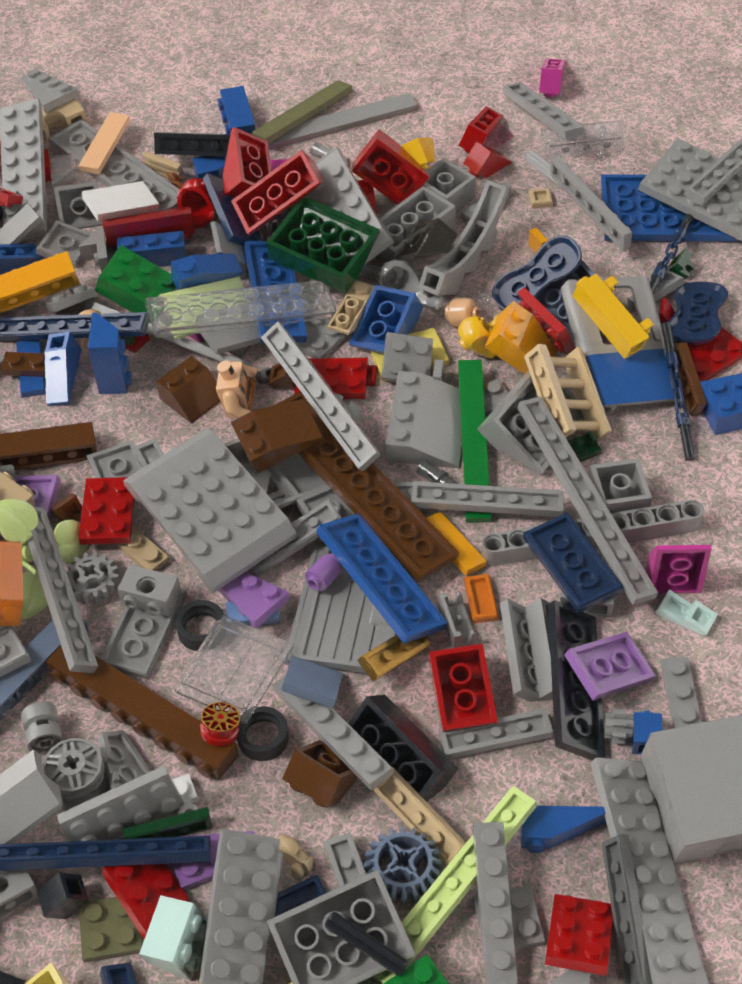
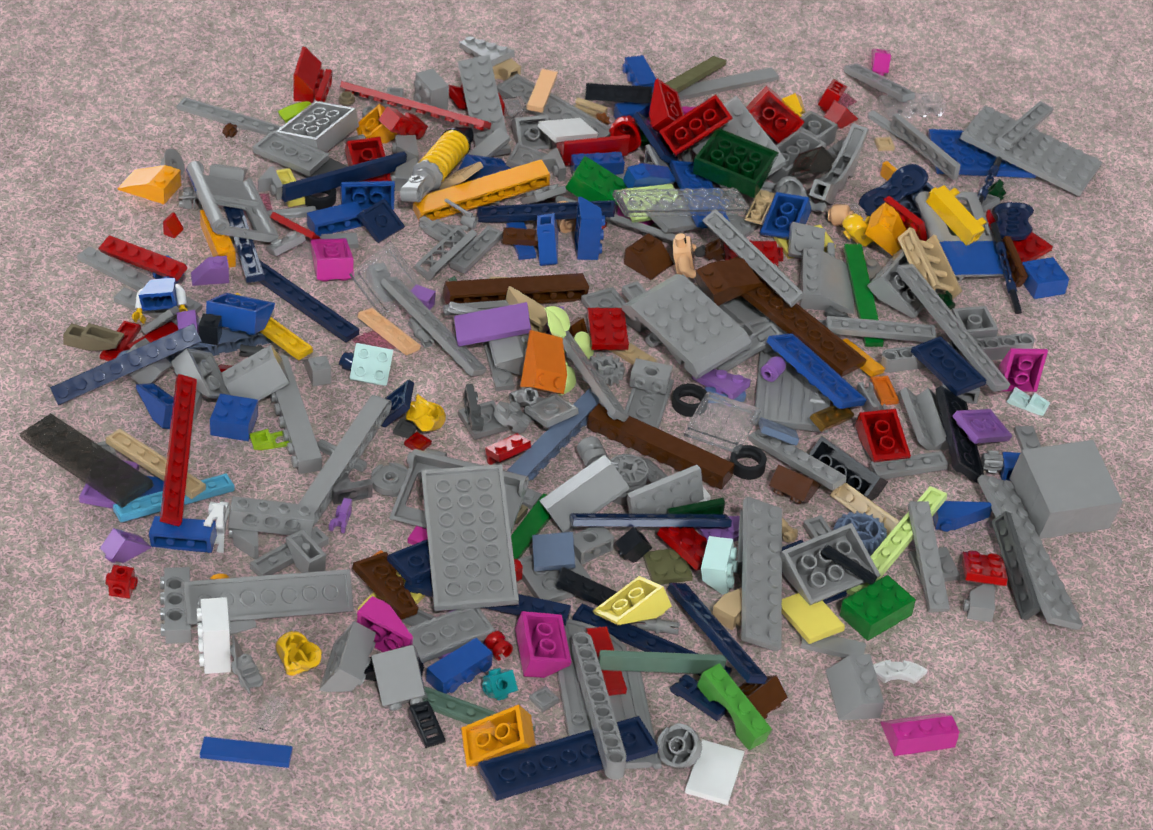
camera: 10 degrees left, 10 degrees down
(219, 726) = (722, 451): red wheel -> none

